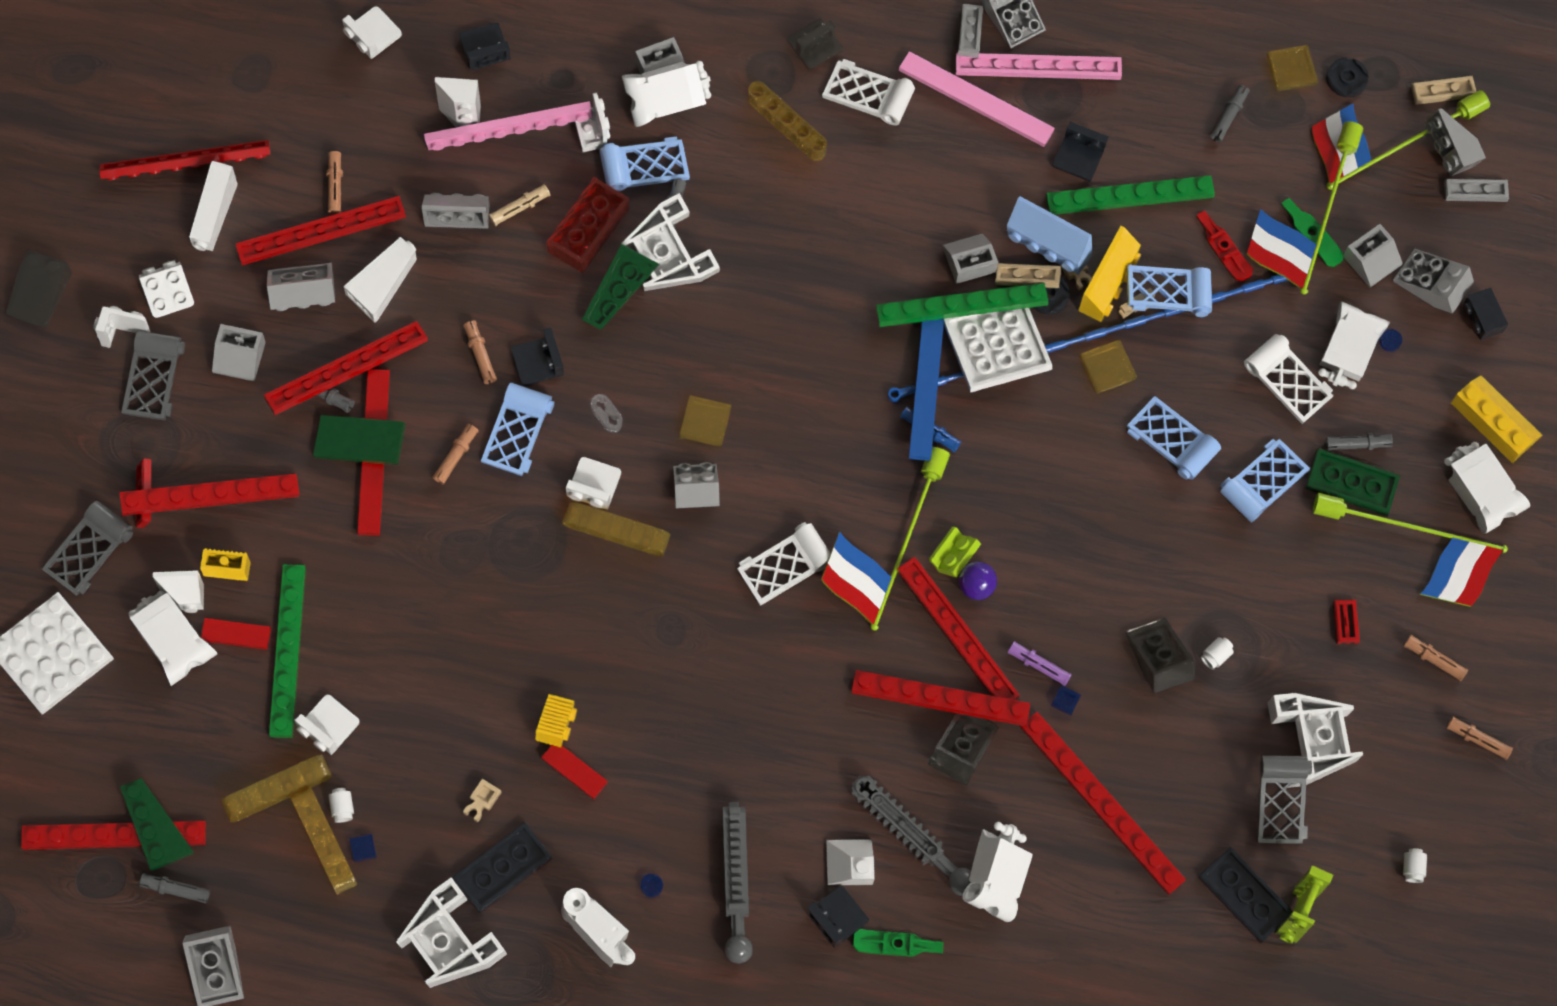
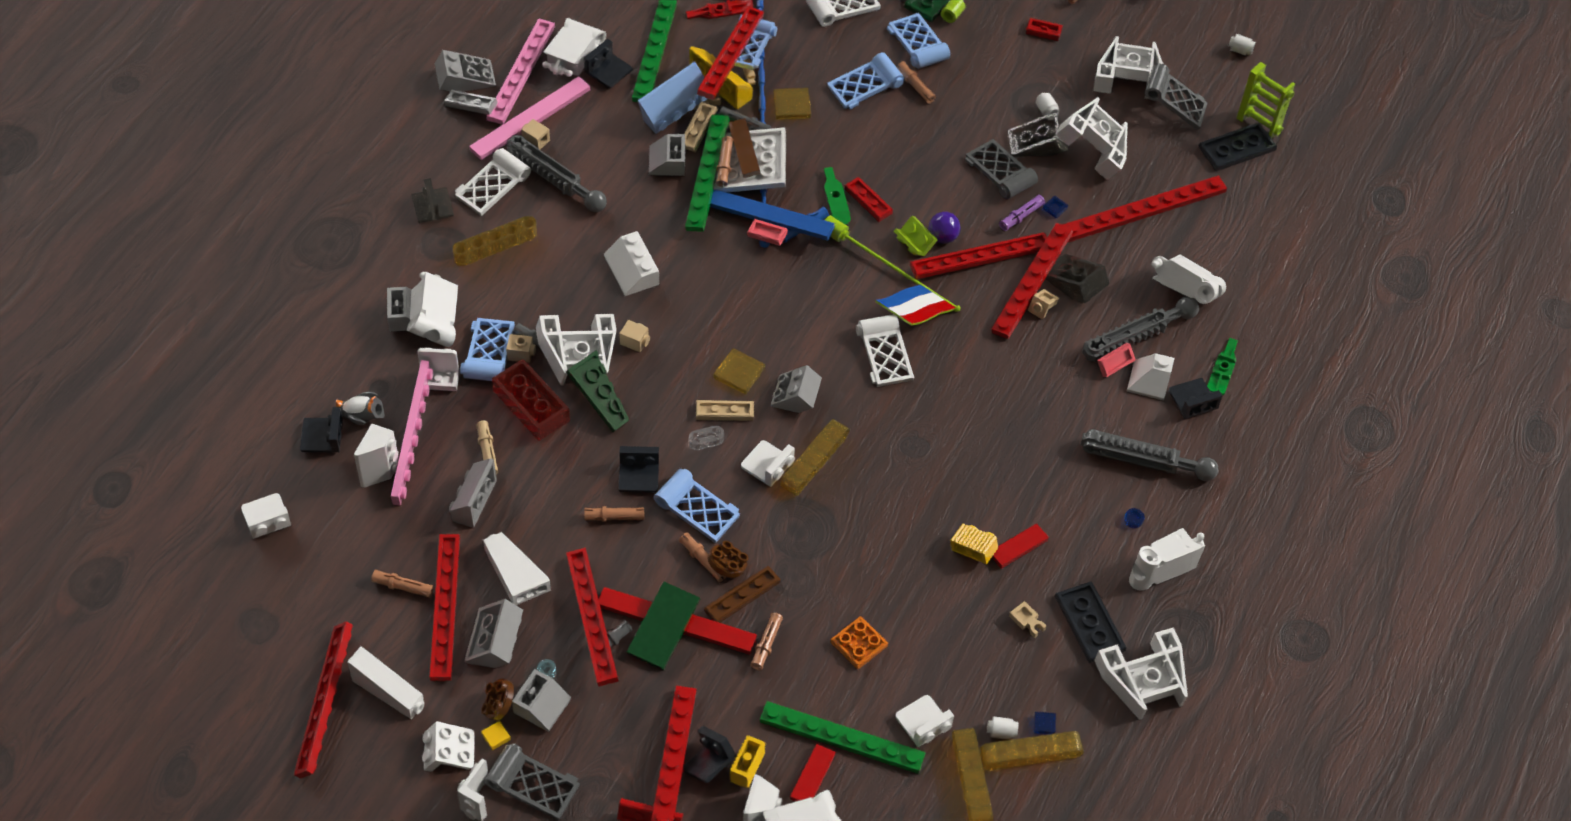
camera: 70 degrees left, 15 degrees down
(194, 326) = (495, 735): none -> yellow tile
(218, 528) = (712, 758): none -> black bracket
(225, 313) = (498, 699): none -> reddish brown tile
(285, 351) = (547, 663): none -> clear light blue bush
(374, 545) = (763, 648): none -> nougat pin
(403, 637) = (859, 642): none -> orange tile
(424, 506) = (742, 595): none -> reddish brown tile
(456, 478) = (727, 560): none -> reddish brown tile
(522, 69) = (361, 408): none -> dark grey animal
(649, 421) = (724, 410): none -> tan tile
(653, 192) = (520, 348): none -> tan brick
(711, 300) = (634, 336): none -> tan brick
(807, 268) = (632, 264): none -> white slope
(858, 817) = (1116, 360): none -> coral tile
(900, 392) = (767, 232): none -> coral tile
(901, 148) = (555, 173): none -> dark grey gear
(914, 717) = (1042, 302): none -> tan bracket
(950, 111) = (536, 133): none -> tan brick
(975, 458) = (838, 206): none -> green piece
(980, 316) = (723, 167): none -> nougat pin
(997, 489) = (868, 199): none -> red tile
(1007, 331) = (744, 148): none -> reddish brown tile
(1054, 315) = (727, 112): none -> dark grey pin
(1085, 647) = (1015, 180): none -> dark grey piece
(1090, 105) = (570, 47): none -> white piece
(1128, 271) = (730, 53): none -> red plate
(1184, 718) = (1102, 132): none -> white wedge
(1199, 487) = (912, 78): none -> nougat pin

